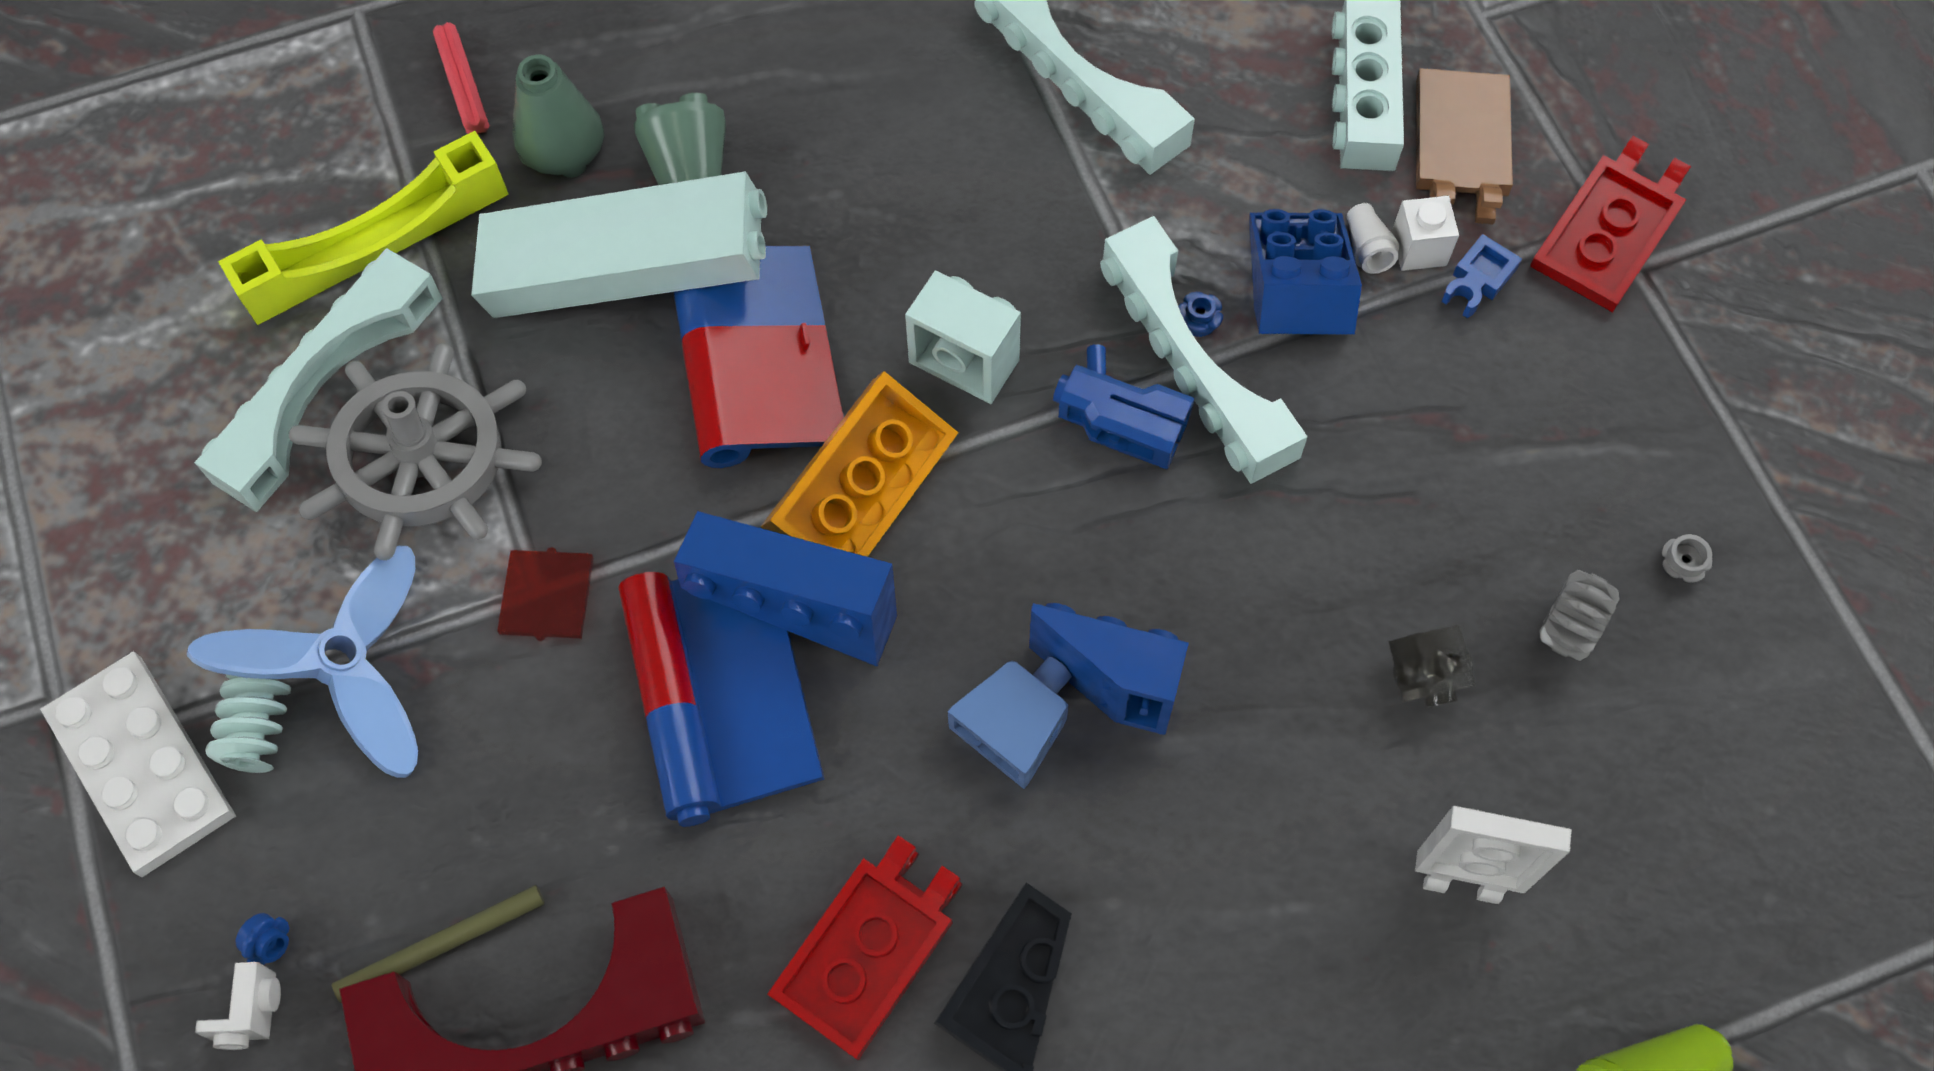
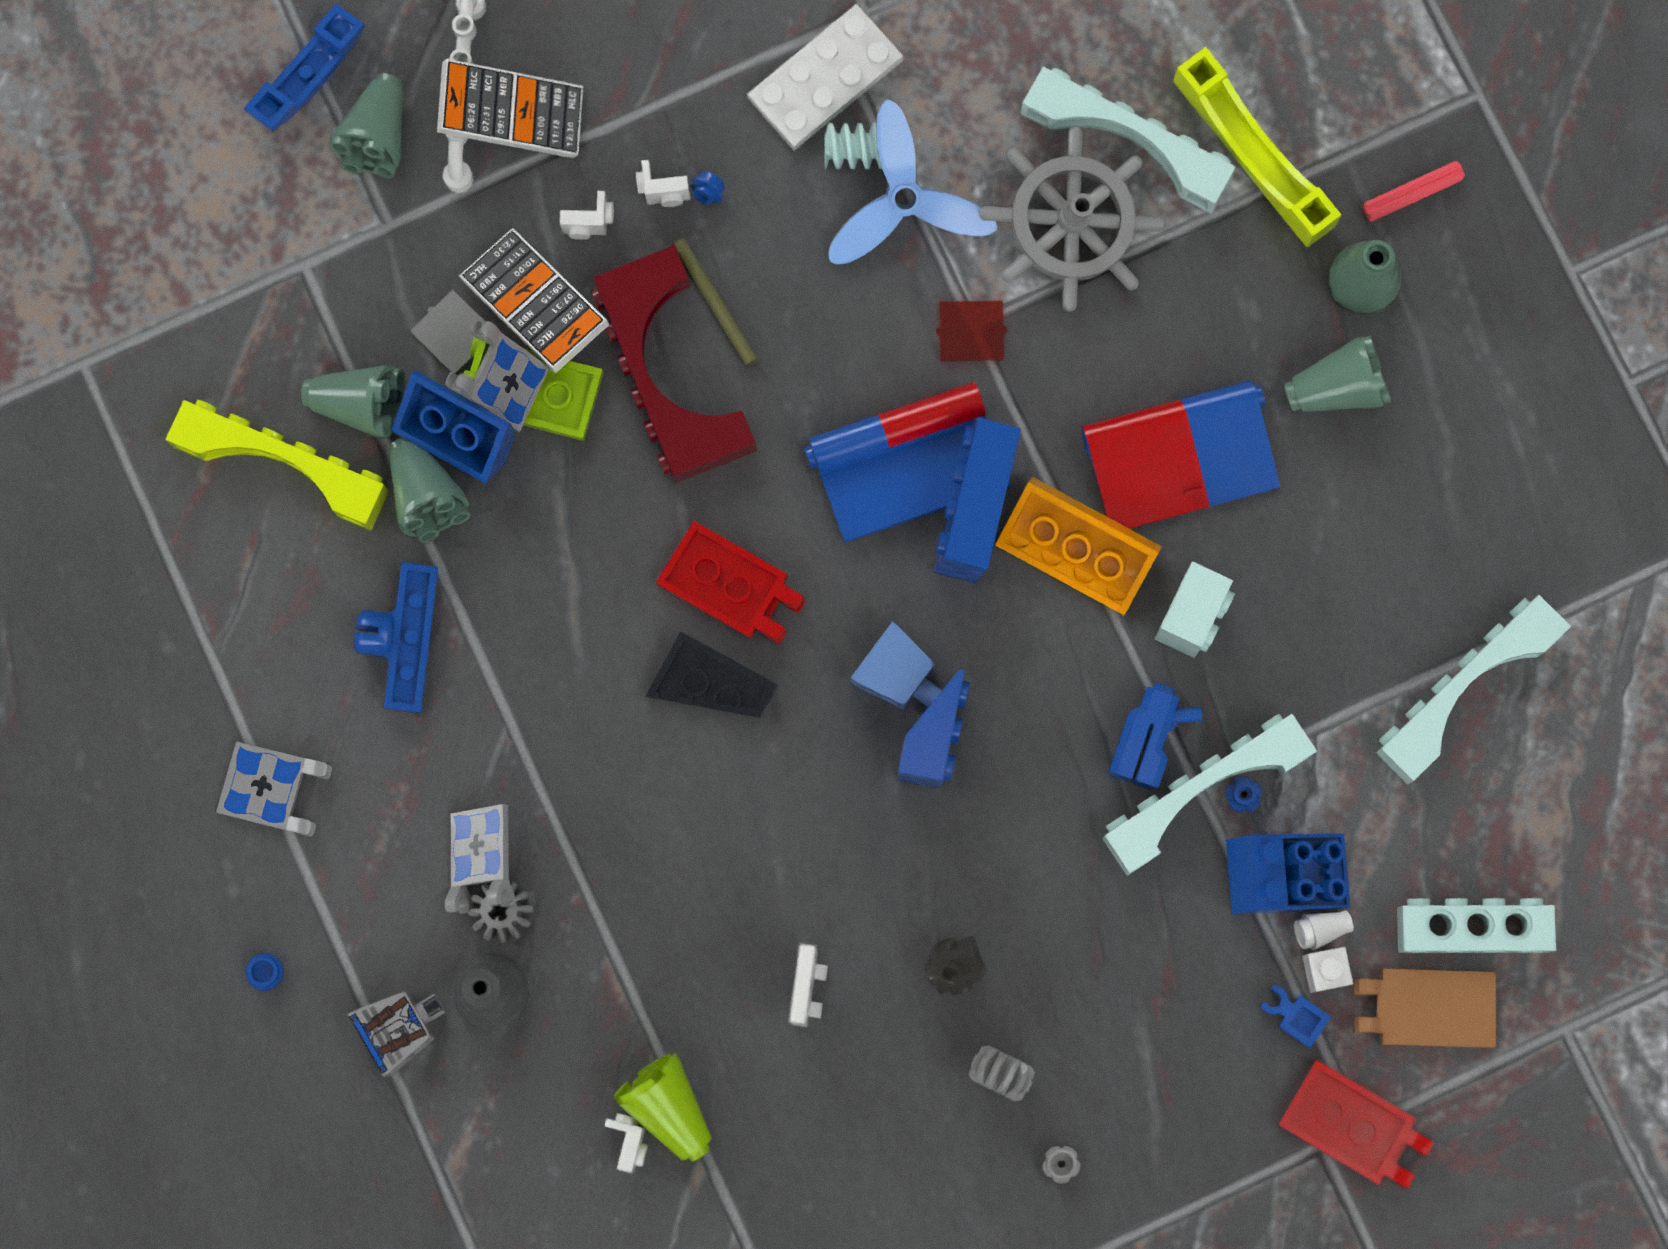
camera: 90 degrees right, 15 degrees up
(619, 245) = (1249, 341): light aqua brick -> none

